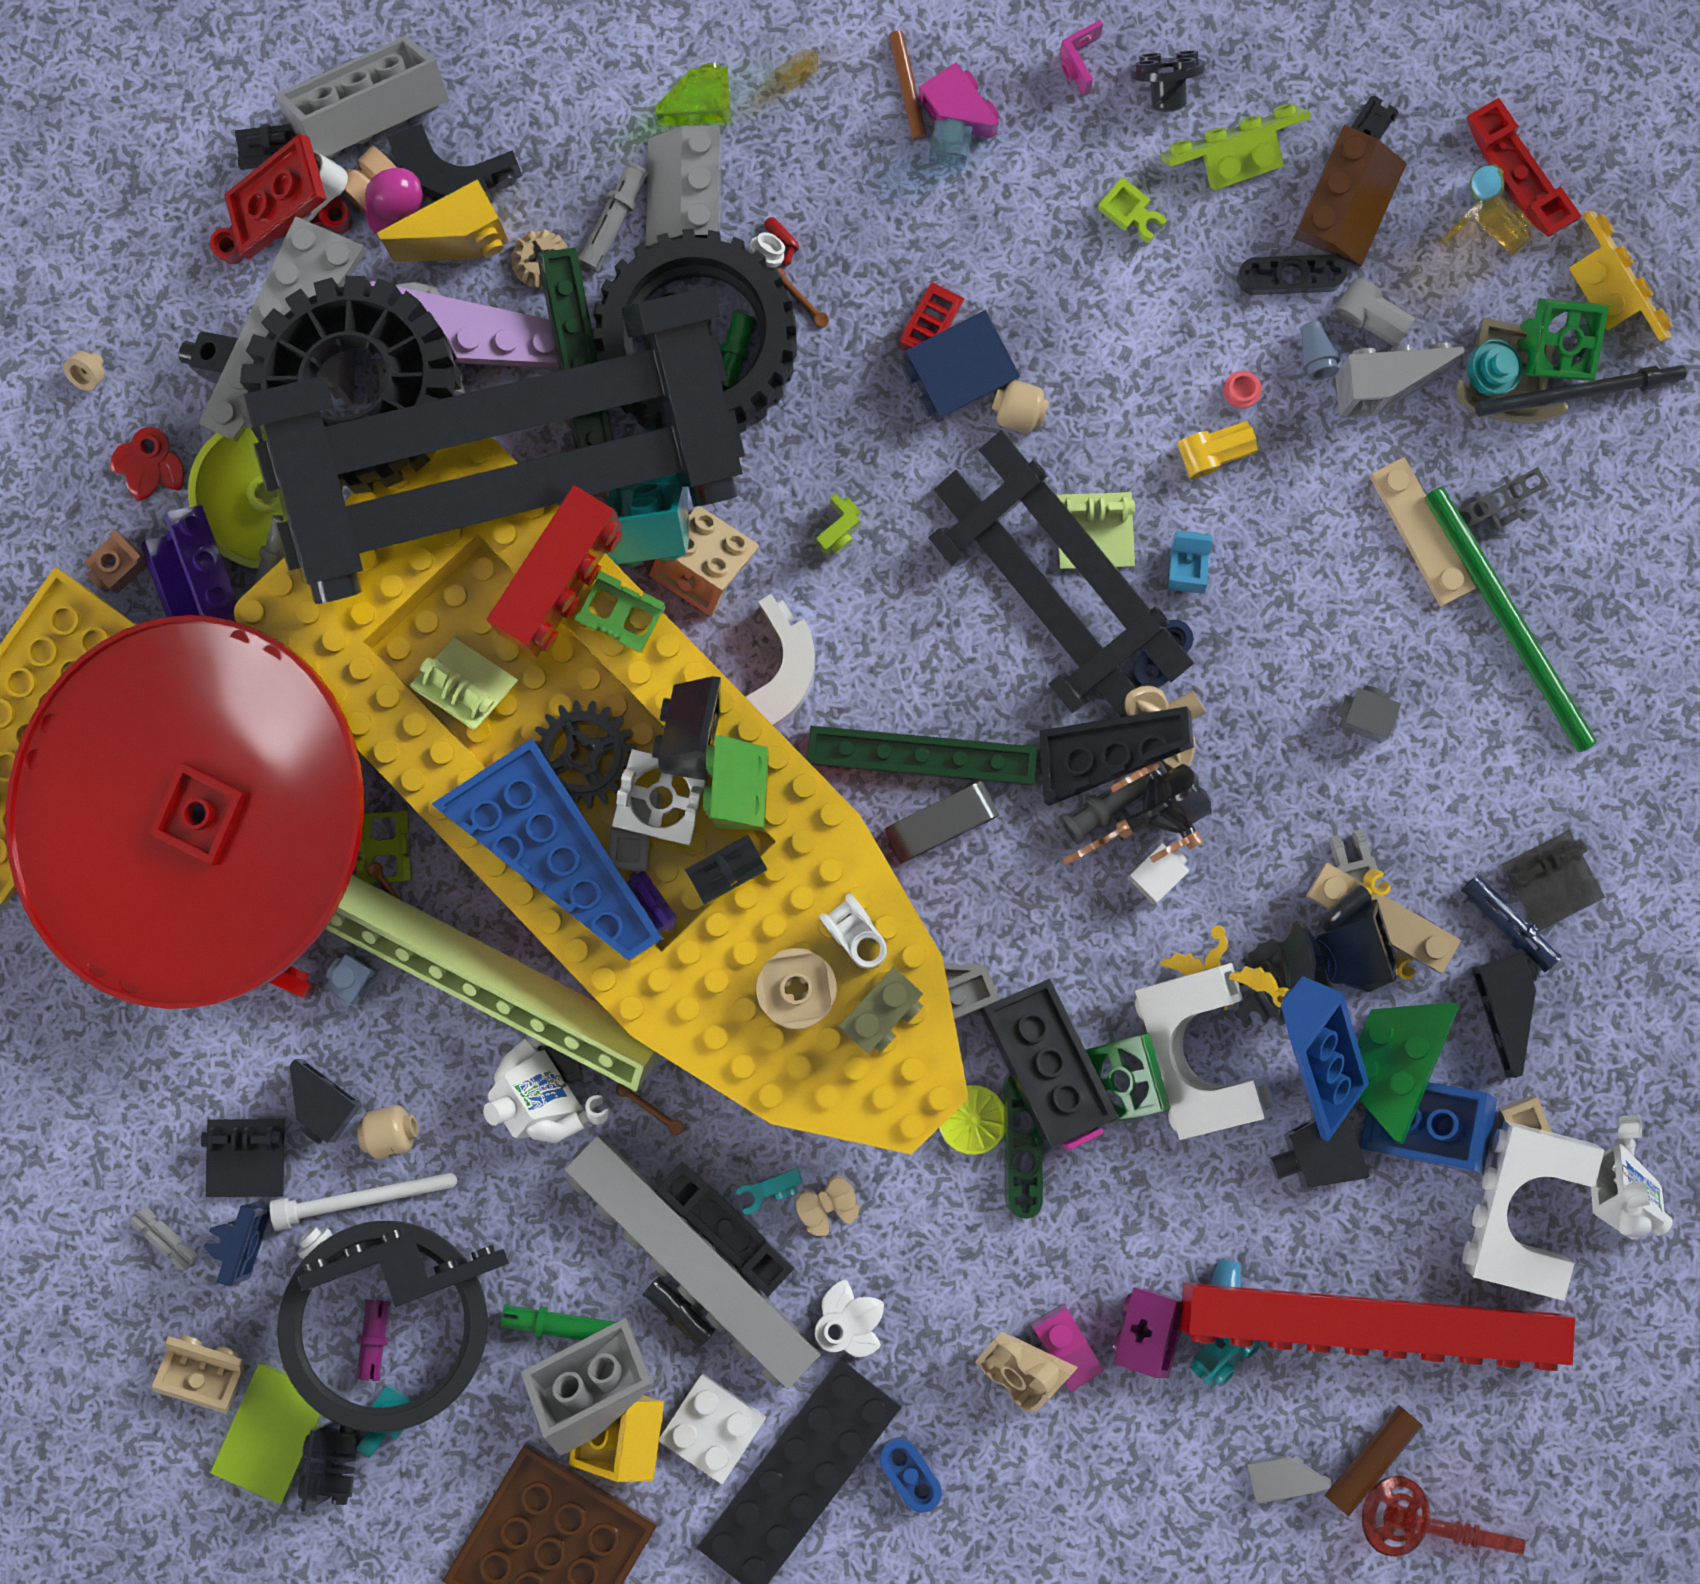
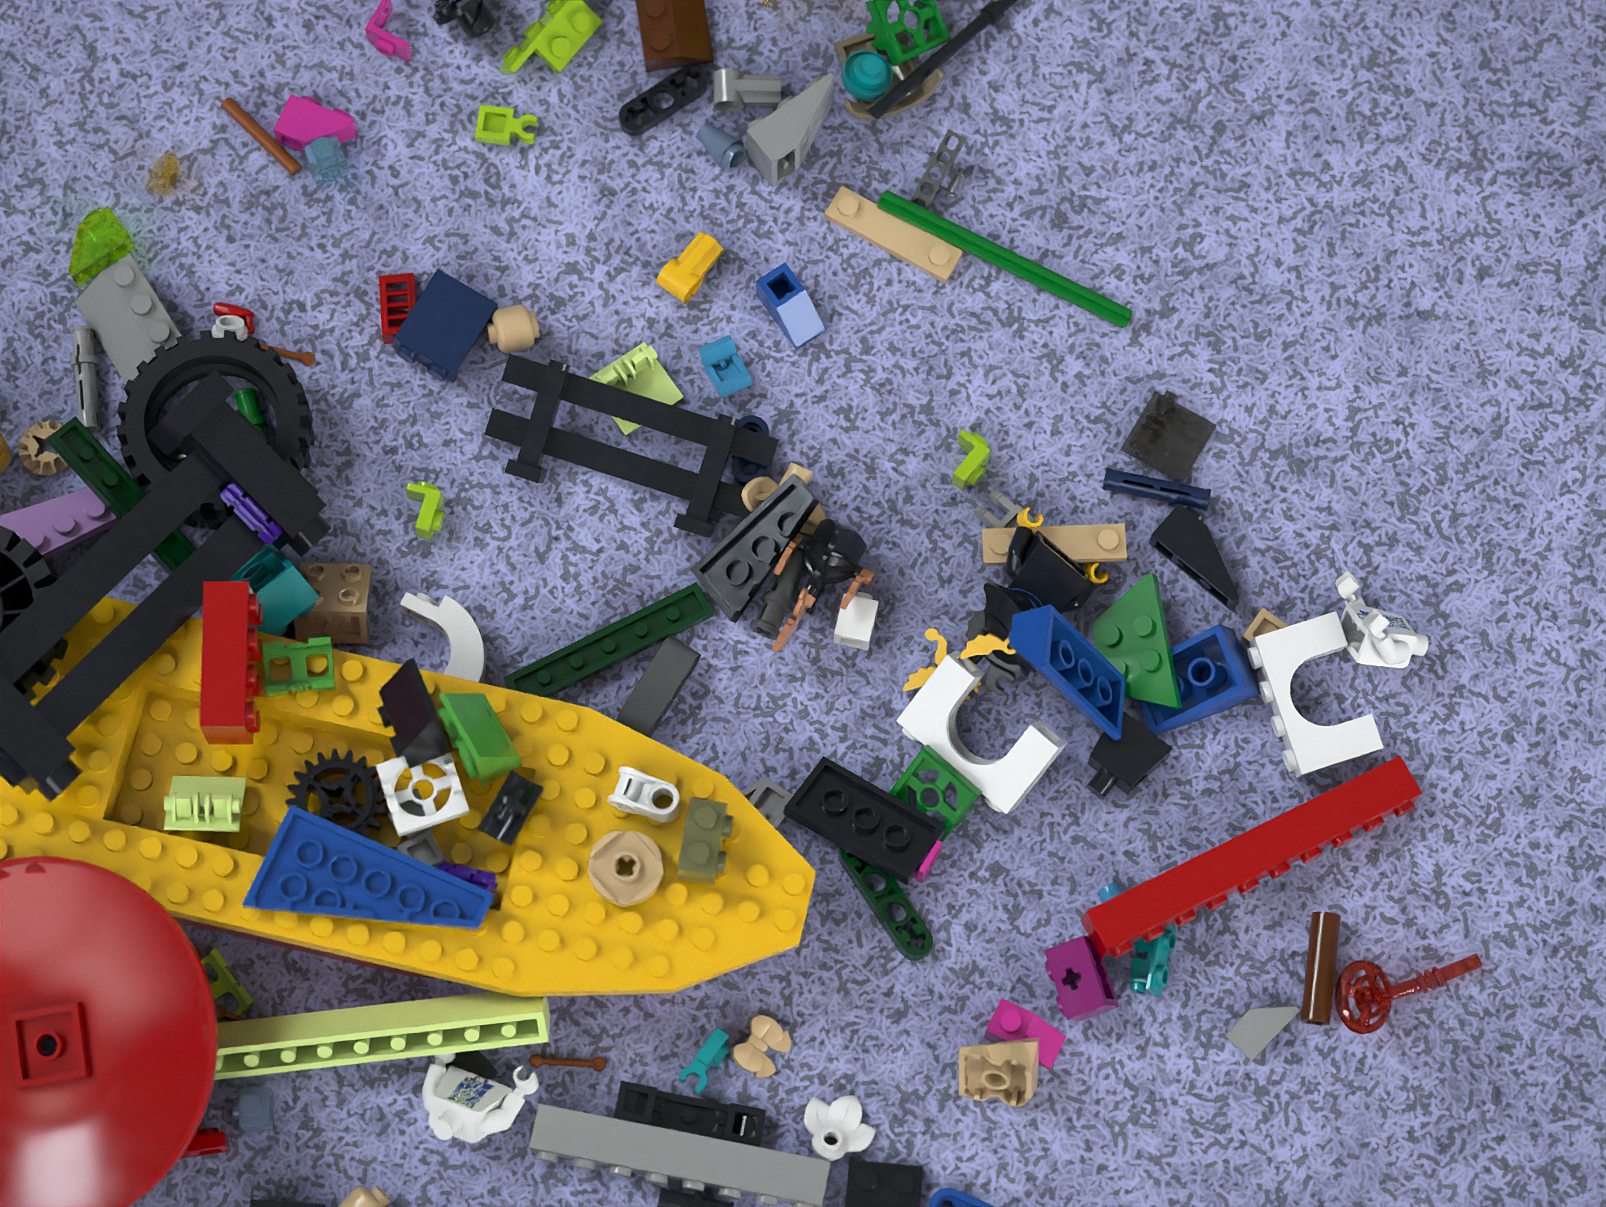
camera: 35 degrees left, 10 degrees down
(667, 440) = (251, 513): none -> dark purple axle
(976, 1124) = (835, 906): neon yellow wheel -> none
(1242, 389) = (681, 210): coral plate -> none
(1284, 542) = (789, 305): none -> blue slope
(1354, 798) = (972, 467): none -> lime bracket
(1368, 713) = (941, 397): dark grey brick -> none

